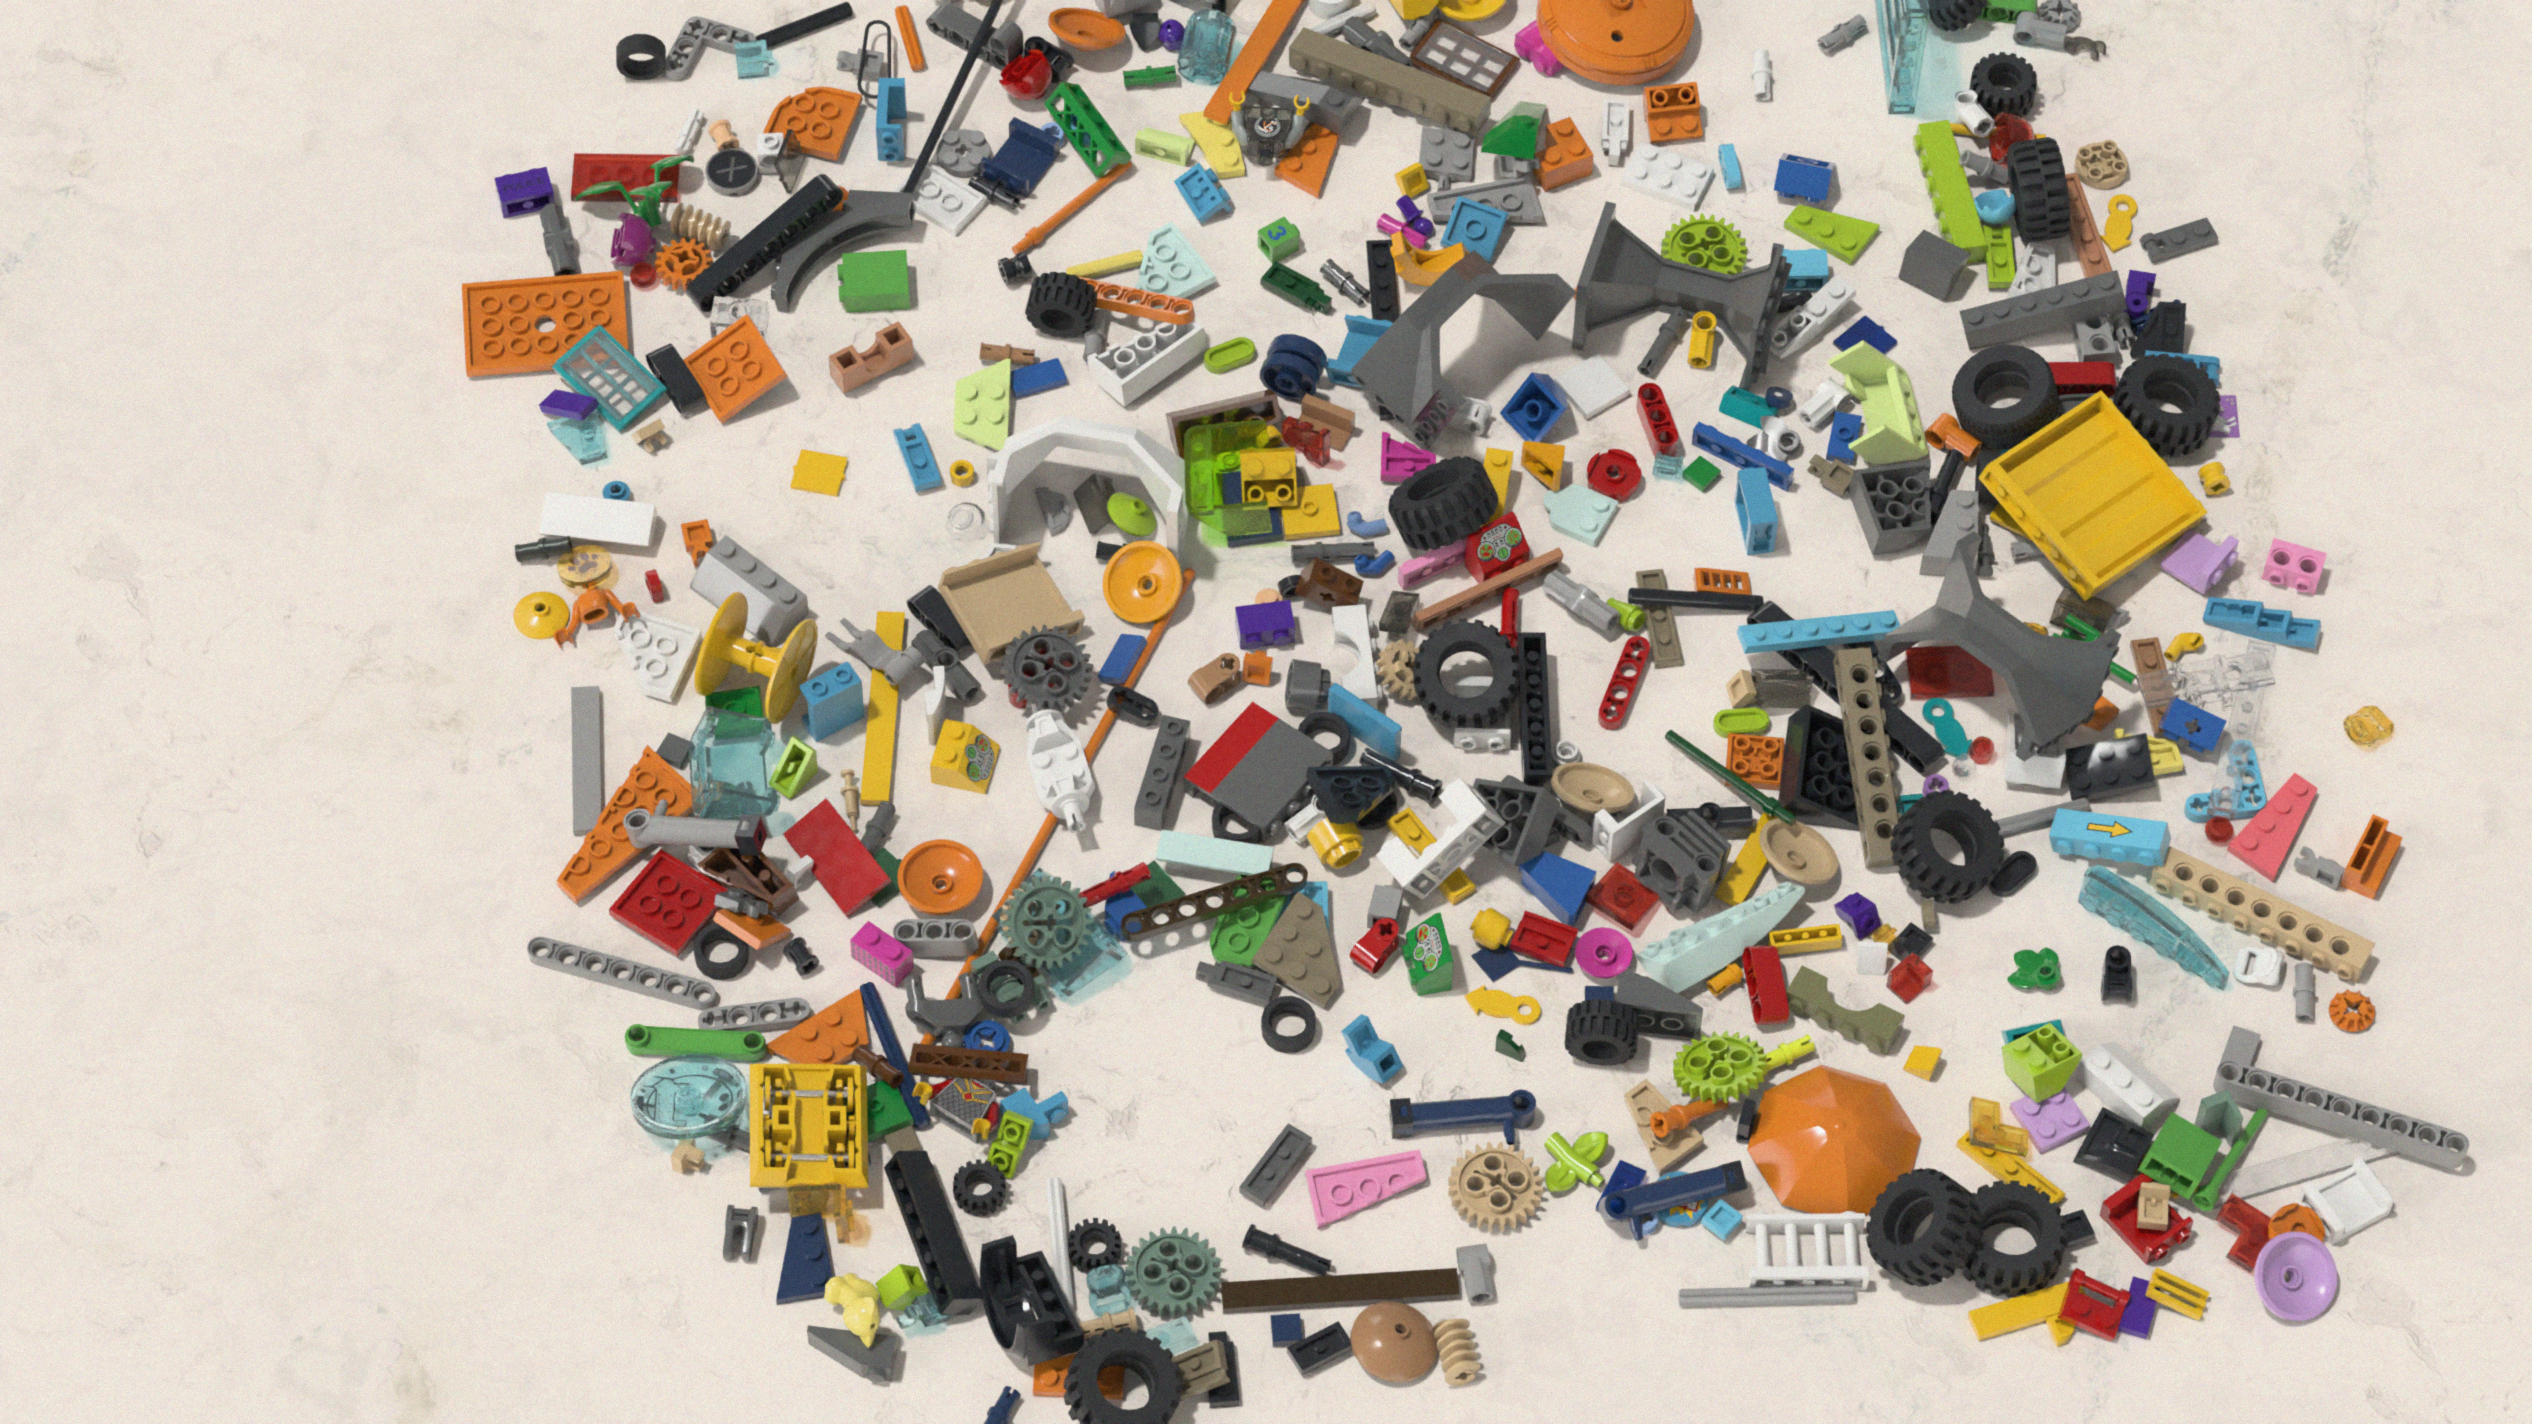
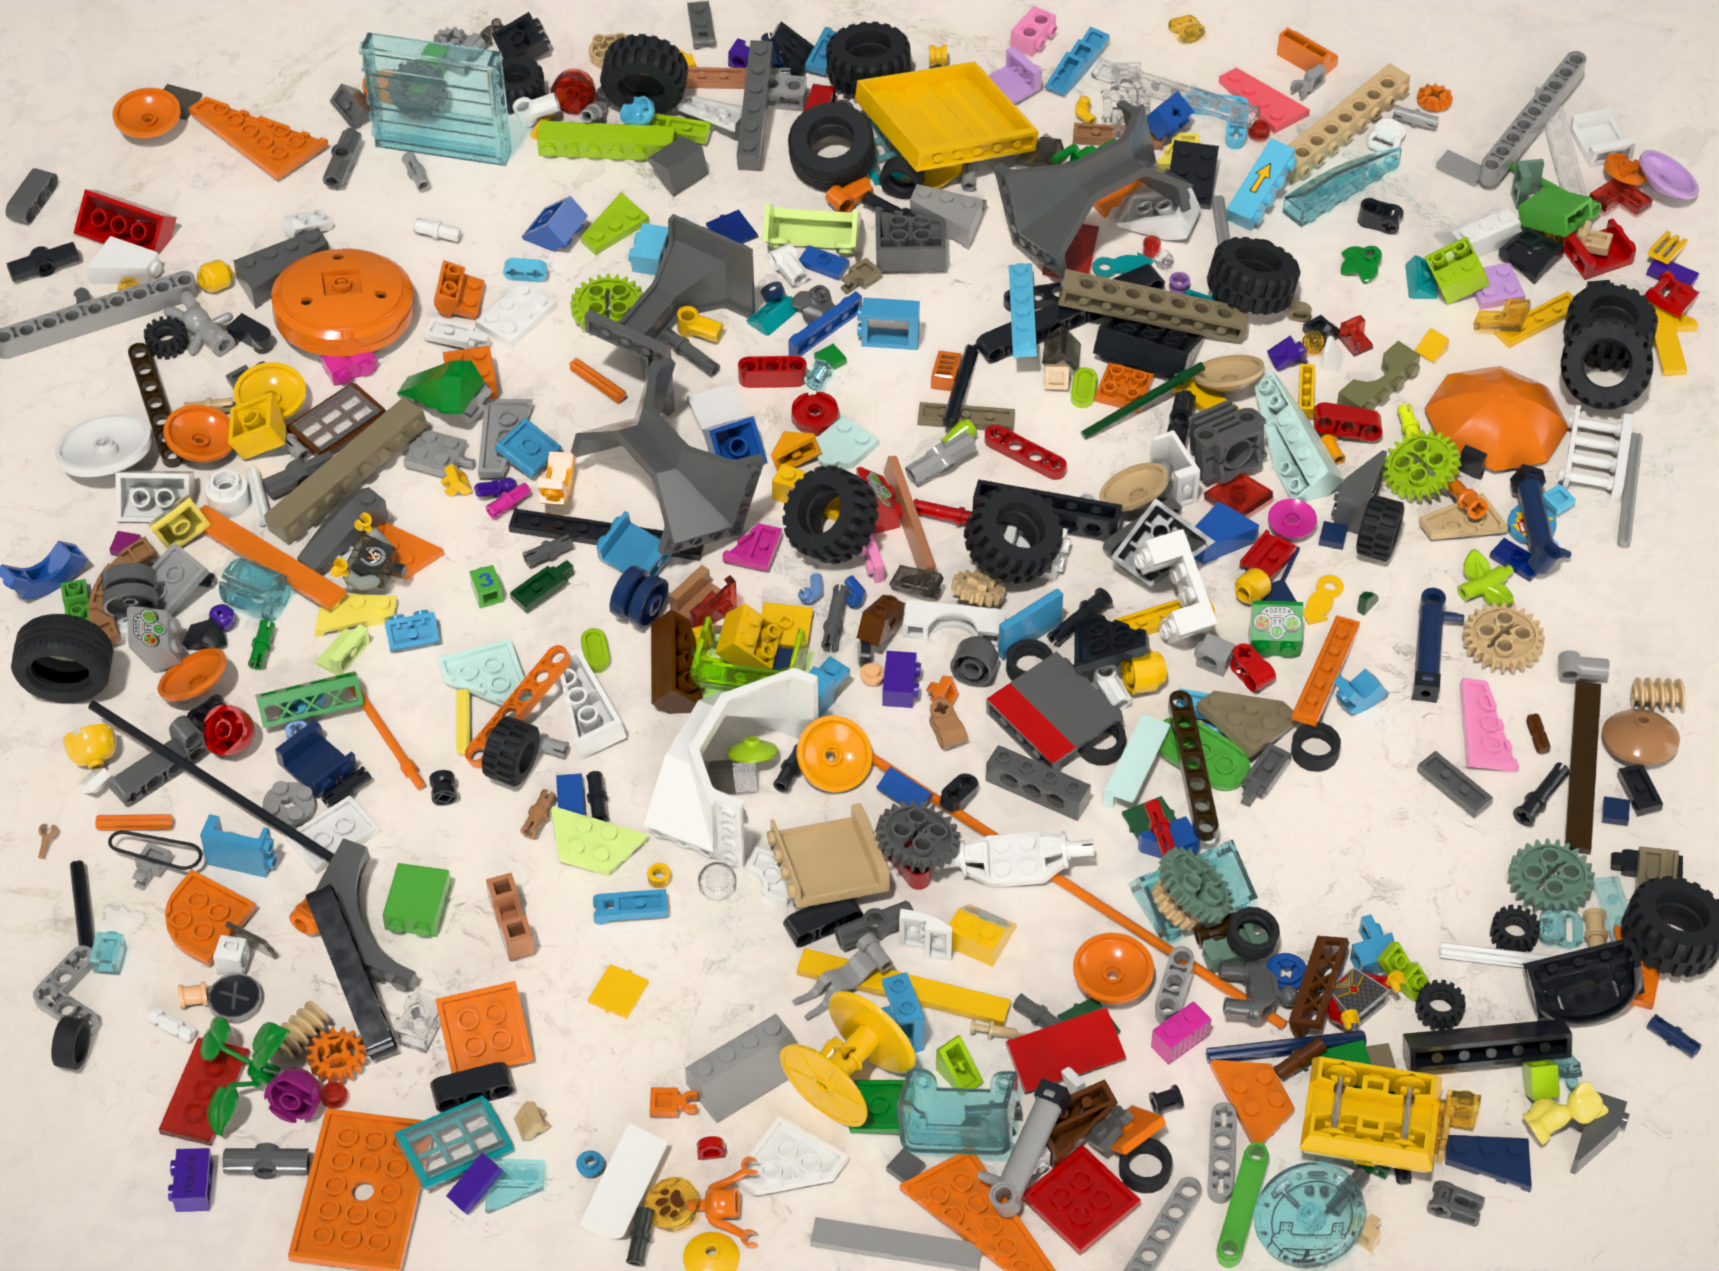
camera: 75 degrees left, 5 degrees down
(1041, 398) = (597, 796): none -> black pin
(1230, 553) = (830, 676): none -> dark azure brick
(1366, 1242) = (1539, 737): none -> reddish brown piece
(1394, 1016) = (1325, 670): none -> orange tile
(2079, 76) = (522, 38): none -> black plate

